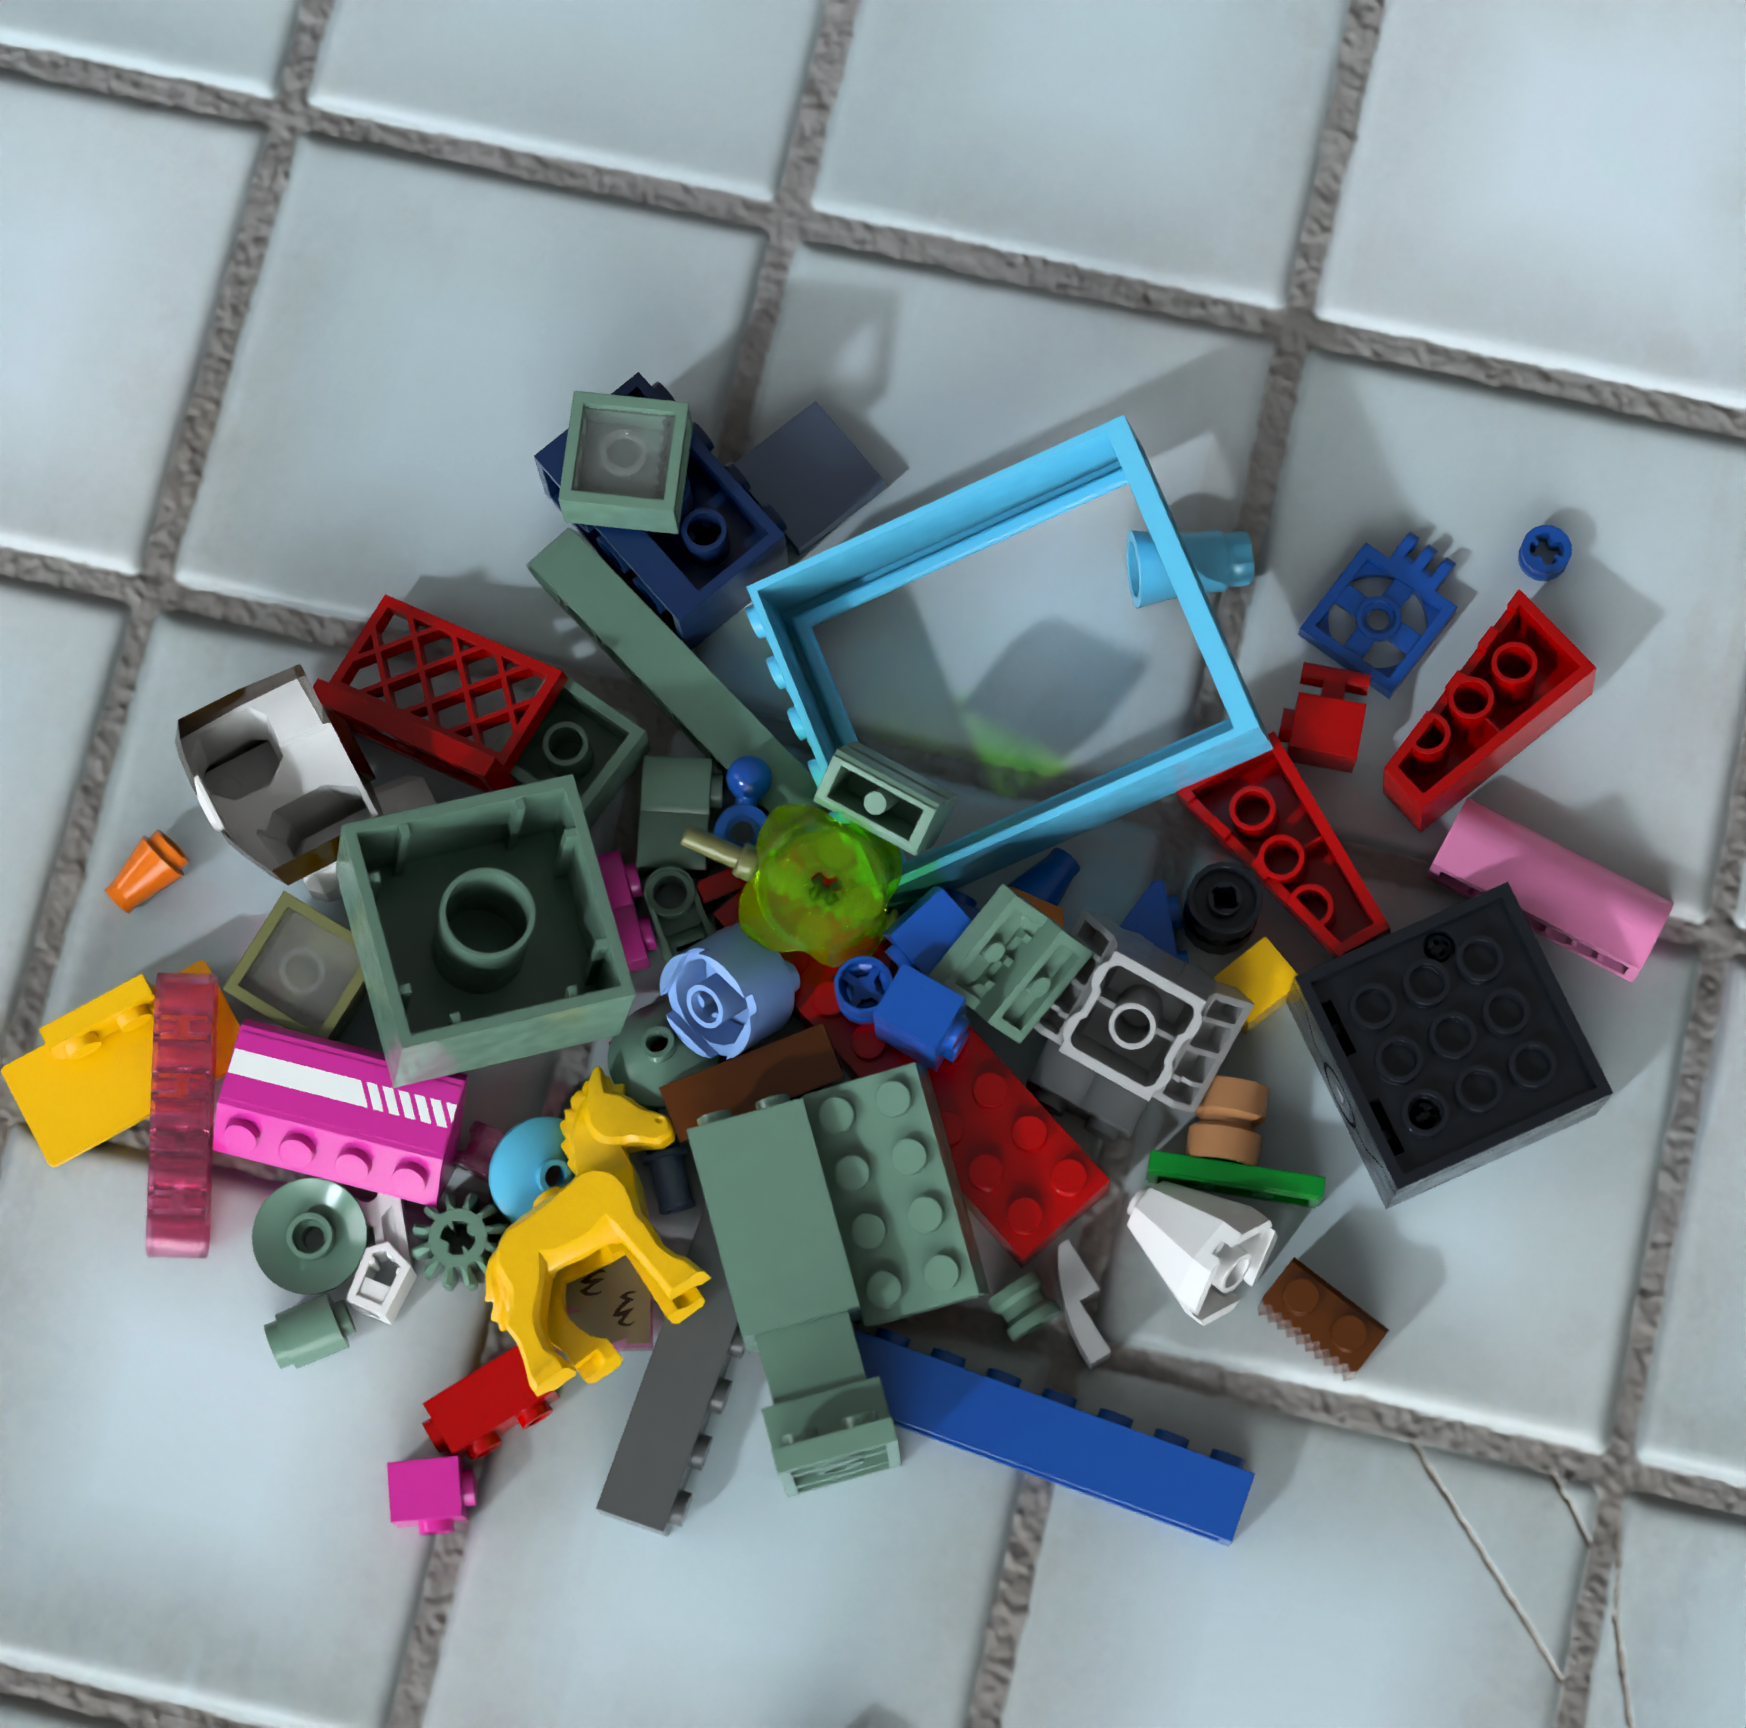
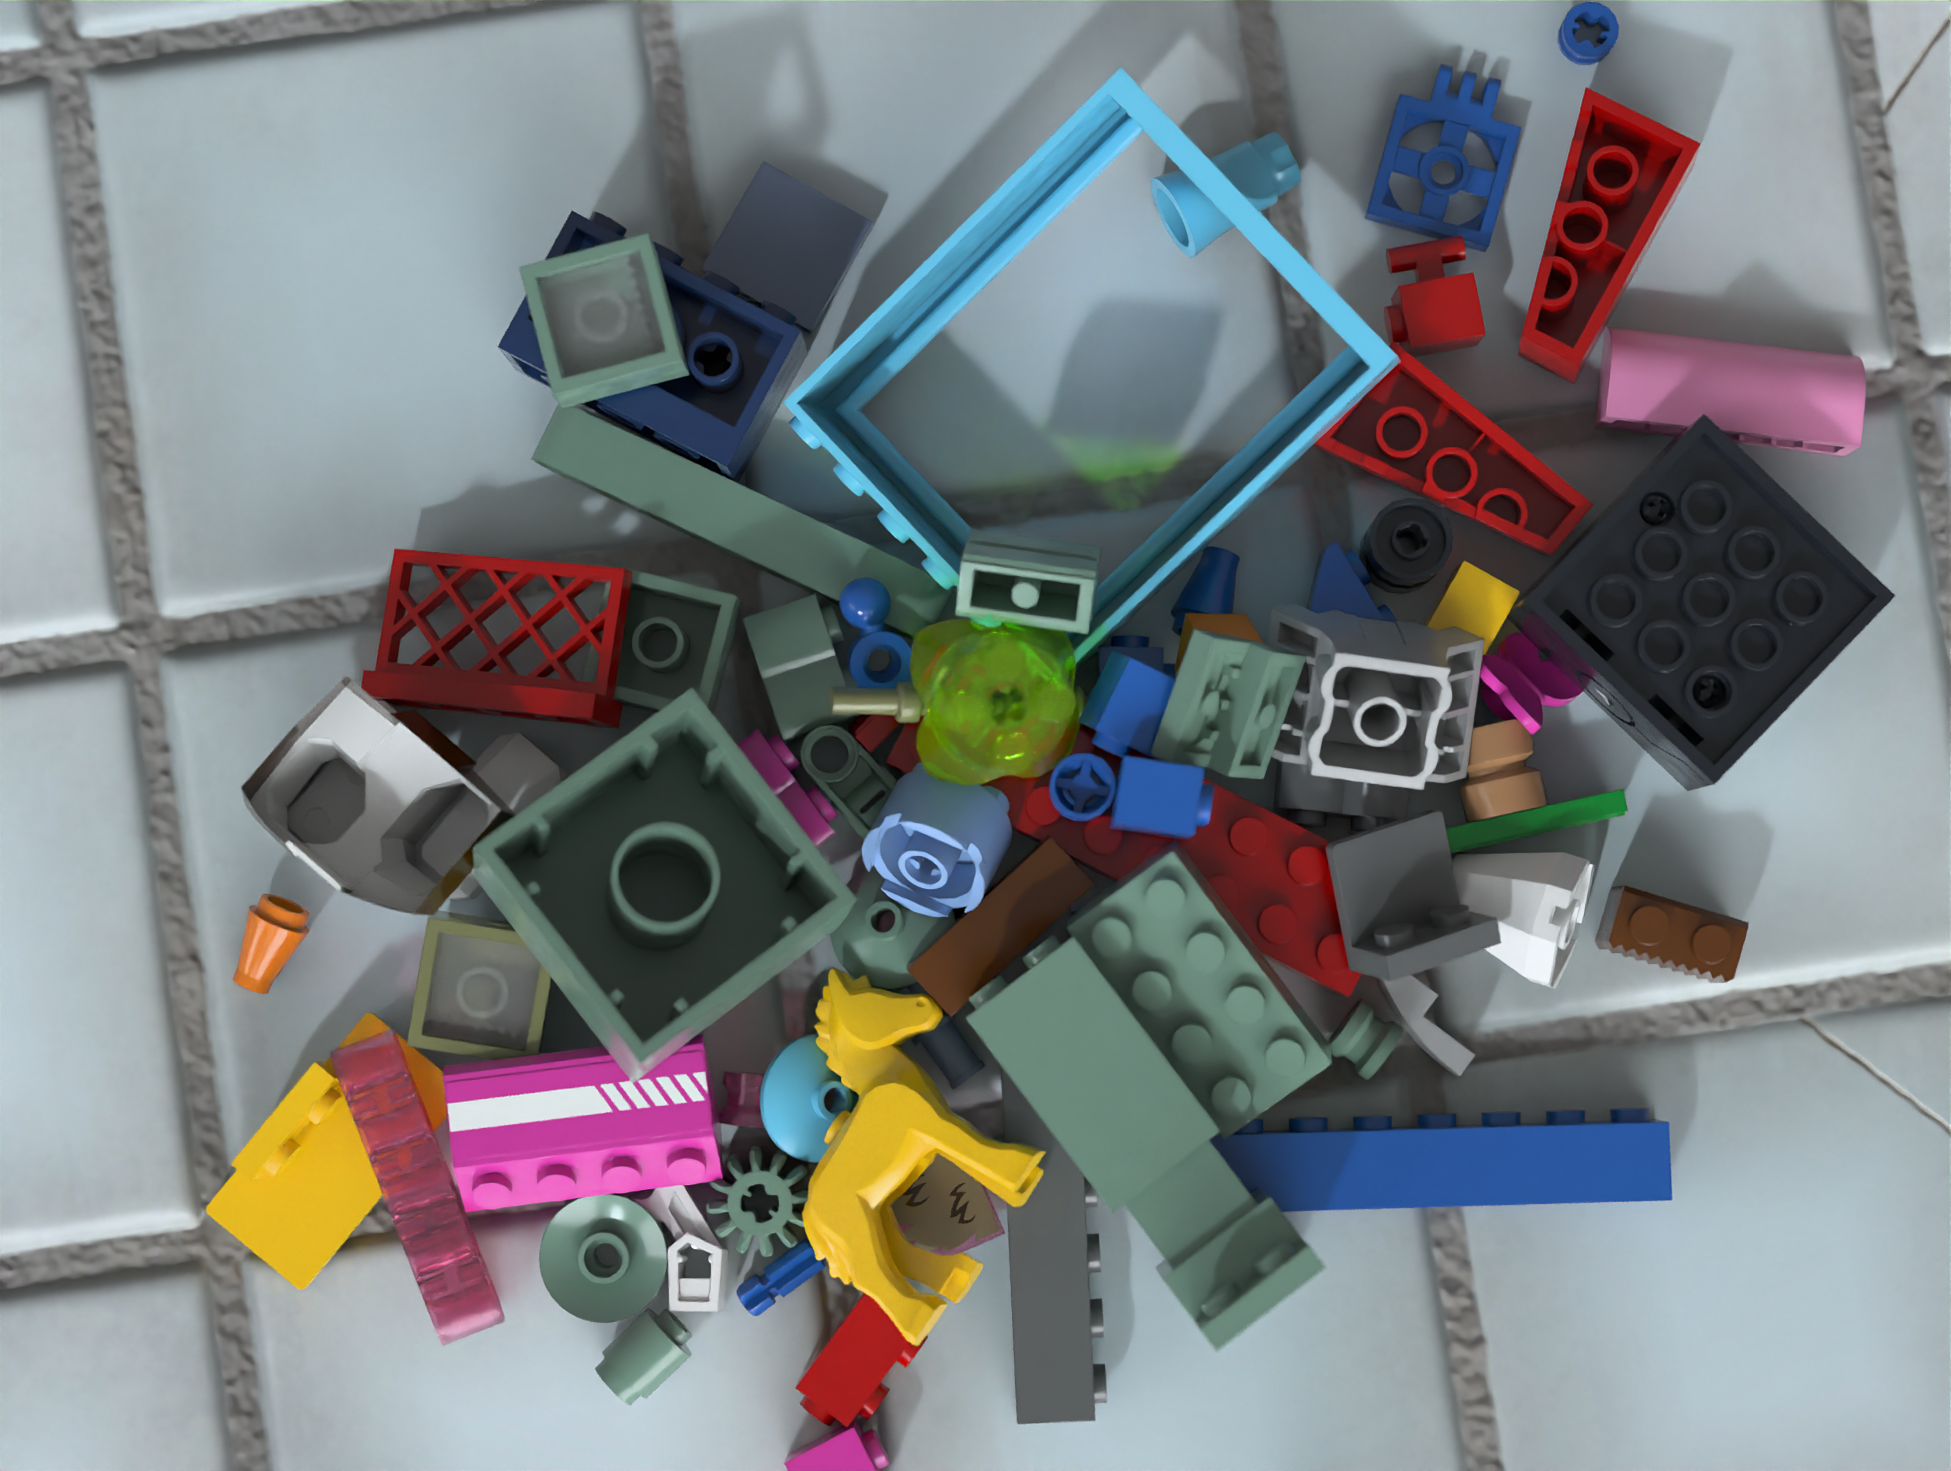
camera: 25 degrees left, 10 degrees up
(451, 1314) = (780, 1278): none -> blue axle
(1097, 1184) = (1403, 899): none -> dark grey bracket
(1277, 1059) = (1520, 683): none -> dark pink animal

